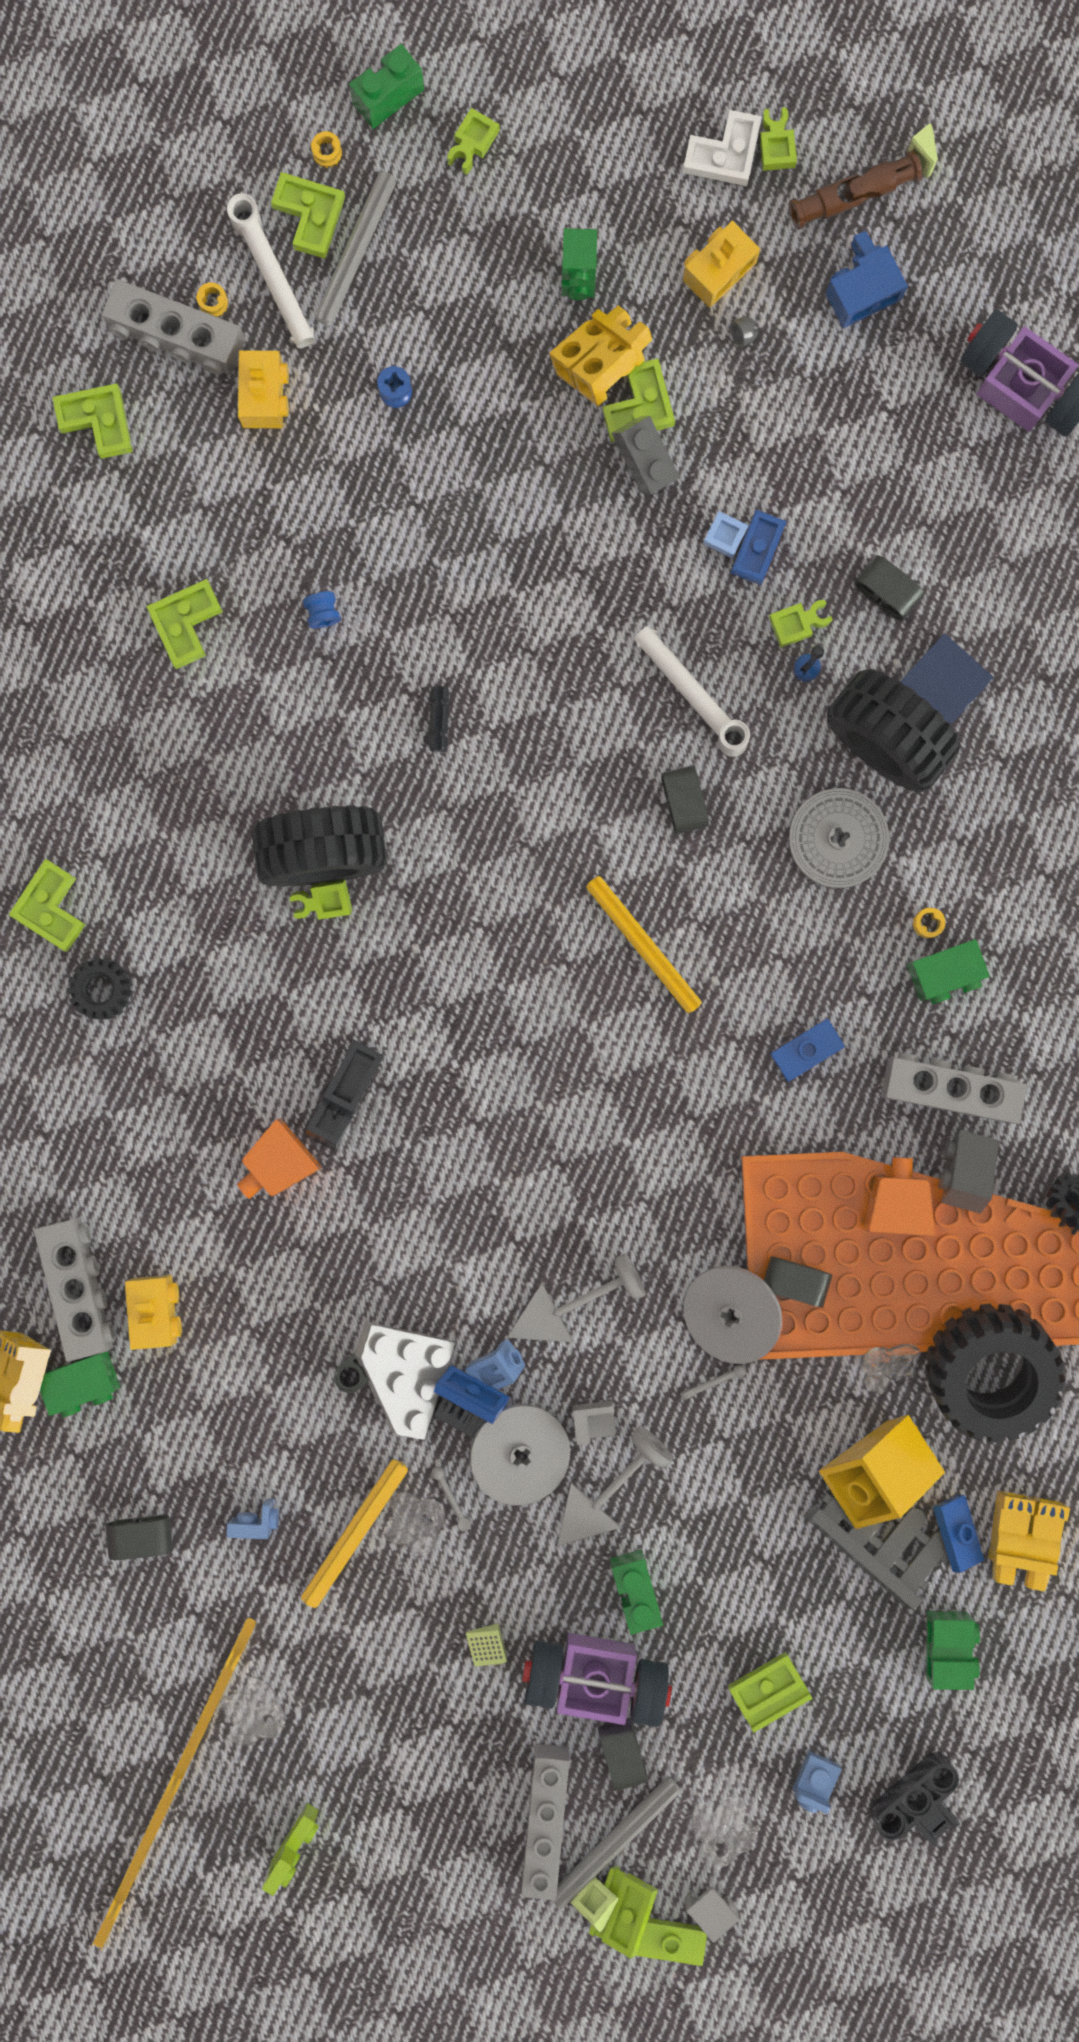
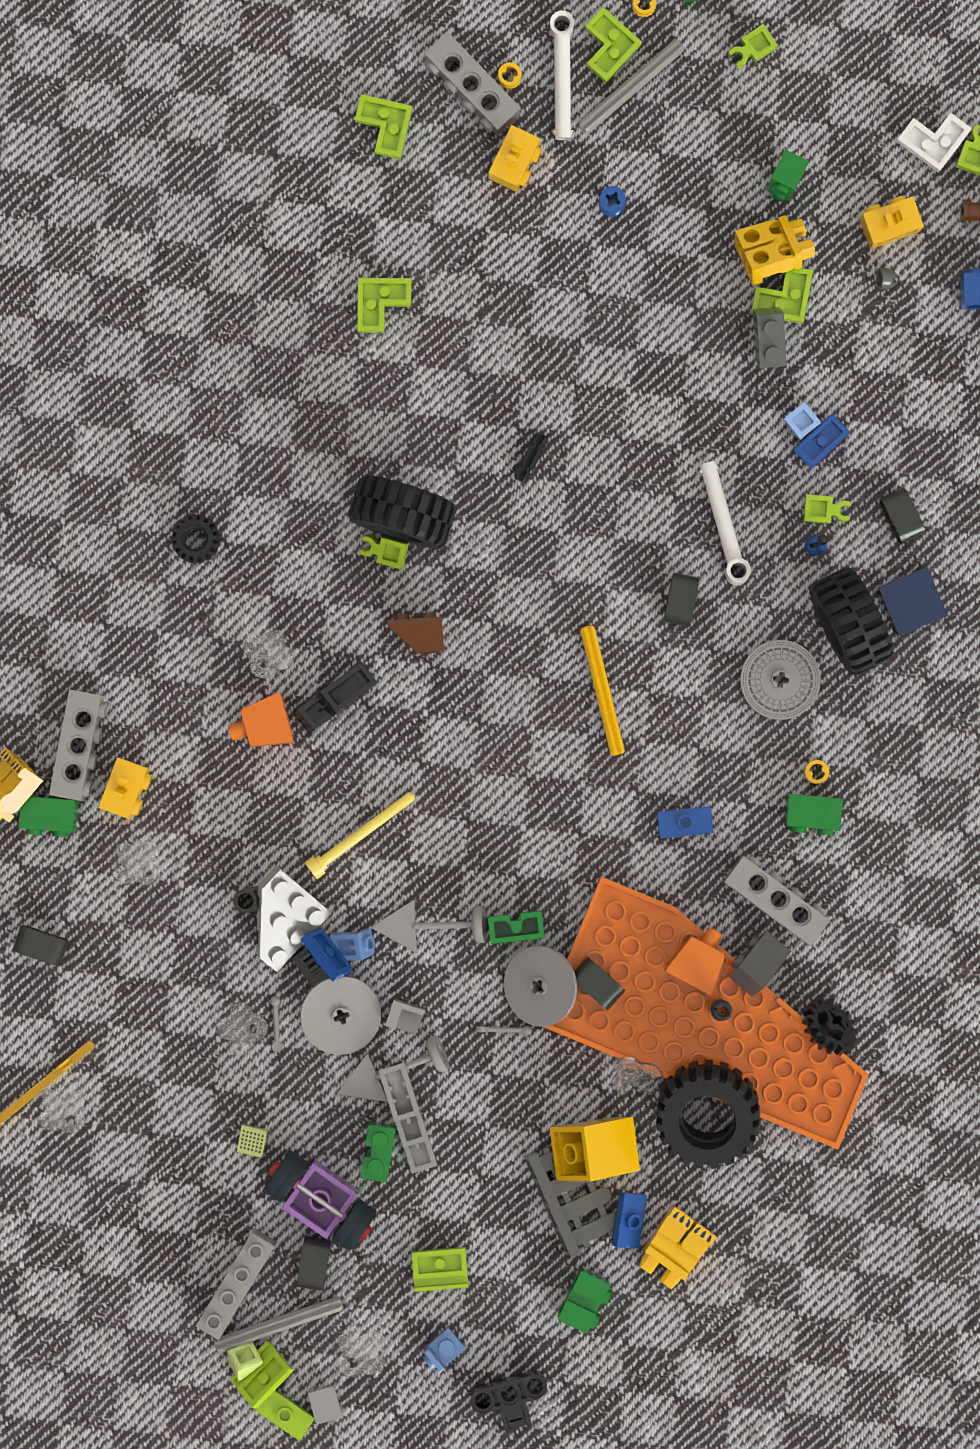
camera: 25 degrees right, 0 degrees up
(40, 908) = (179, 462): lime plate -> none
(202, 1386) = (135, 859): none -> clear plate
(243, 1075) = (268, 649): none -> clear plate
(250, 1527) = (123, 974): medium blue bracket -> none
(284, 1861) = (41, 1221): lime plate -> none
(321, 610) = (483, 339): blue wheel -> none
(354, 1533) = (195, 1015): yellow axle -> none
(406, 977) = (420, 634): none -> reddish brown slope
(414, 1294) = (319, 864): none -> light yellow piece
(652, 1536) = (408, 1118): none -> light grey slope
(667, 1268) = (506, 930): none -> green brick
(954, 1246) = (725, 1015): none -> black pin

